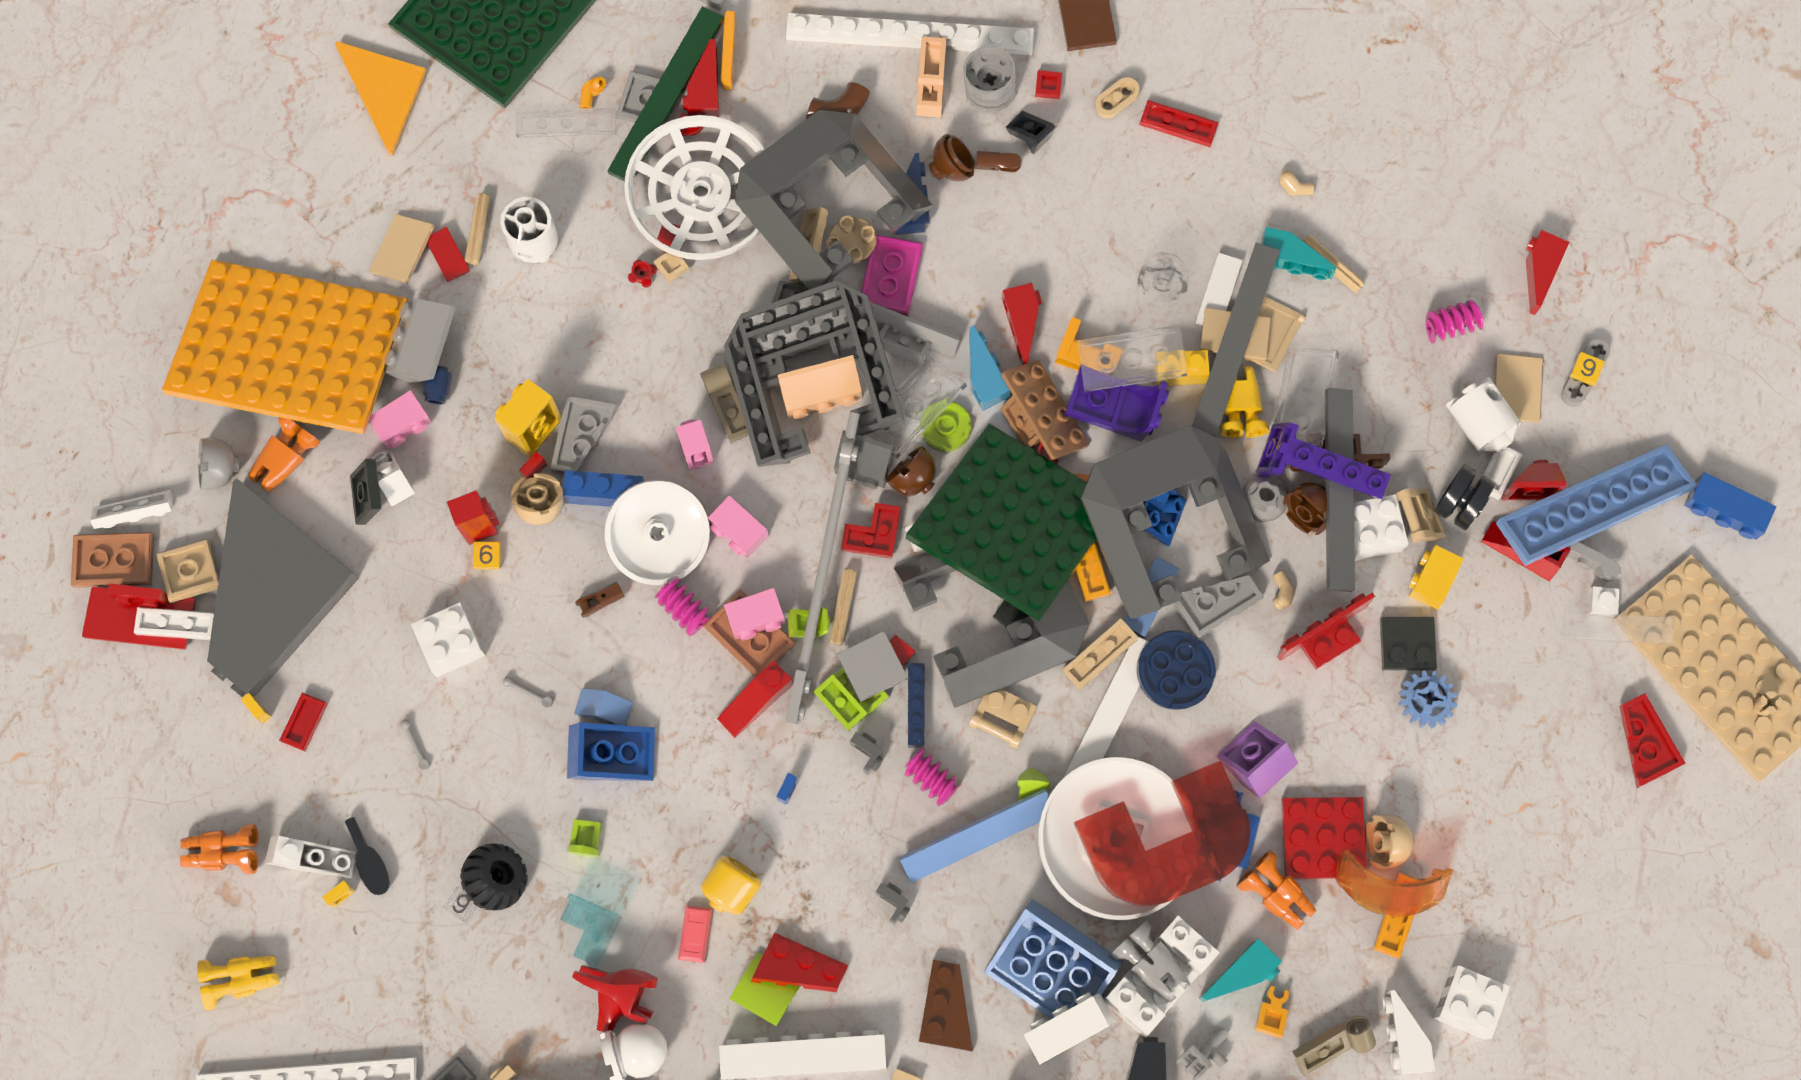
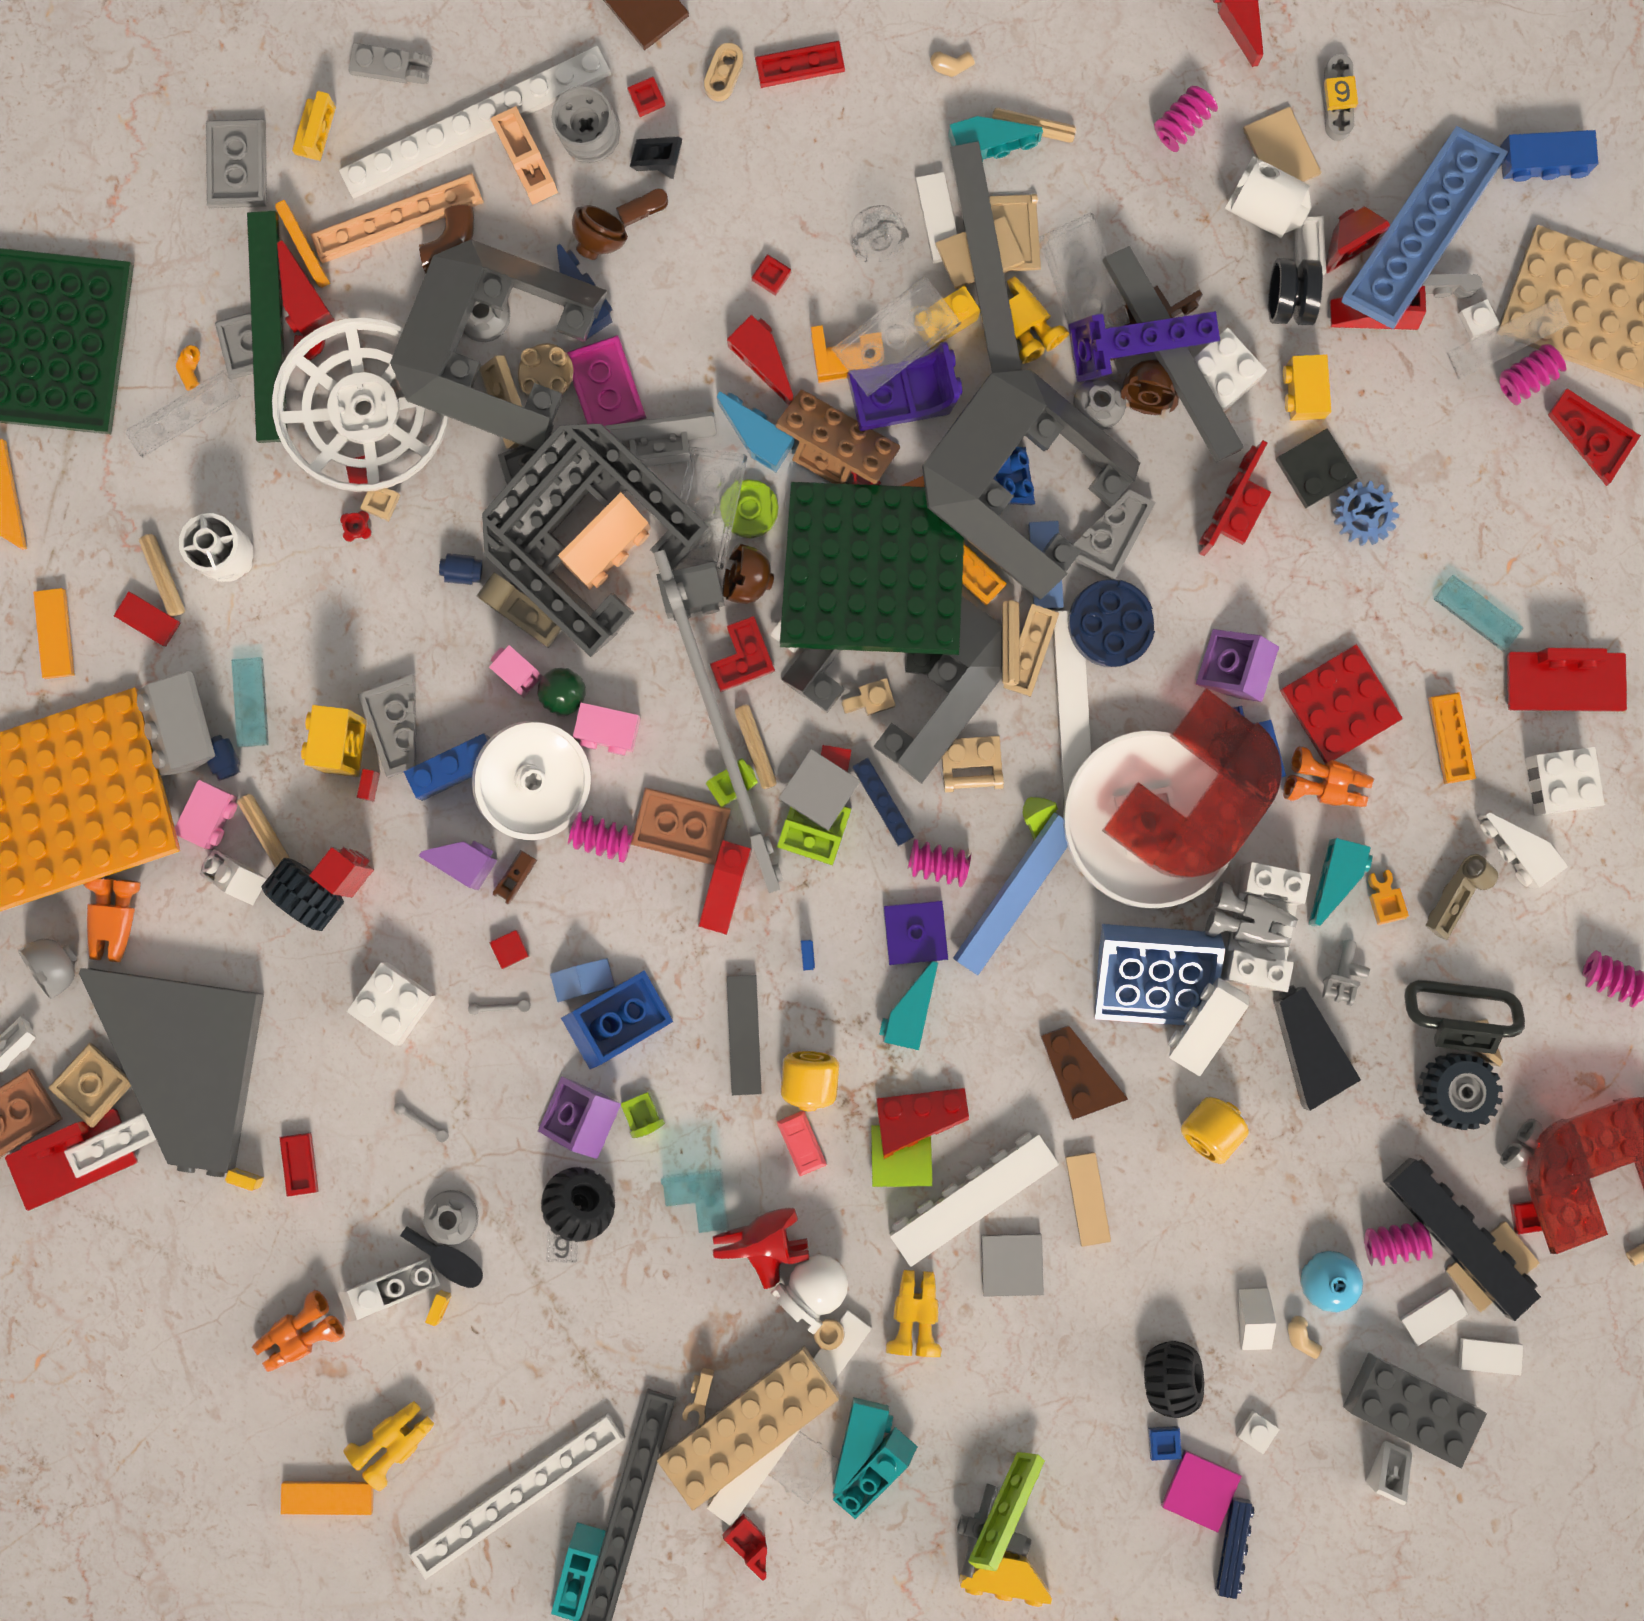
camera: 30 degrees left, 10 degrees up
(162, 992) = (326, 1498): none -> light orange tile
(365, 492) = (218, 907): pearl dark grey plate -> none
(373, 226) = (53, 633): none -> light orange tile
(401, 248) = (97, 639): tan piece -> none
(402, 838) = (465, 1212): none -> light grey piece
(432, 518) = (300, 895): none -> black wheel
(434, 460) = (262, 829): none -> tan axle
(484, 357) = (250, 702): none -> clear light blue tile
(486, 555) = (376, 898): yellow tile -> none
(536, 811) = (579, 1118): none -> medium lavender slope
(537, 499) = (393, 815): tan cylinder -> none
(562, 652) = (509, 949): none -> red tile
(569, 564) = (462, 861): none -> medium lavender slope
(700, 348) = (461, 569): none -> dark blue brick
(701, 822) = (744, 1035): none -> dark grey tile
(720, 480) = (561, 691): none -> dark green hair
(754, 614) = (676, 805): bright pink brick -> none
(808, 70) = (394, 218): none -> light nougat tile
(830, 185) = (489, 327): none -> light grey piece
(838, 881) = (909, 1015): none -> teal slope
(867, 746) = (858, 868): dark grey bracket -> none
(881, 821) = (915, 933): none -> dark purple plate
(892, 895) = (967, 997): dark grey bracket -> none
(957, 621) = (873, 697): none -> tan plate
(1066, 263) = (771, 274): none -> red tile
(1086, 638) = (1010, 643): none -> tan axle
(1285, 593) = (1172, 483): tan arm -> none
(1386, 895) = (1434, 728): clear orange windscreen -> none
(1389, 841) = (1405, 673): tan cylinder -> none
(1421, 515) = (1261, 334): tan plate -> none
(1476, 830) = (1478, 613): none -> clear light blue tile
(1519, 923) = (1567, 680): none -> red bracket
(1621, 664) = (1530, 372): none -> dark pink piece

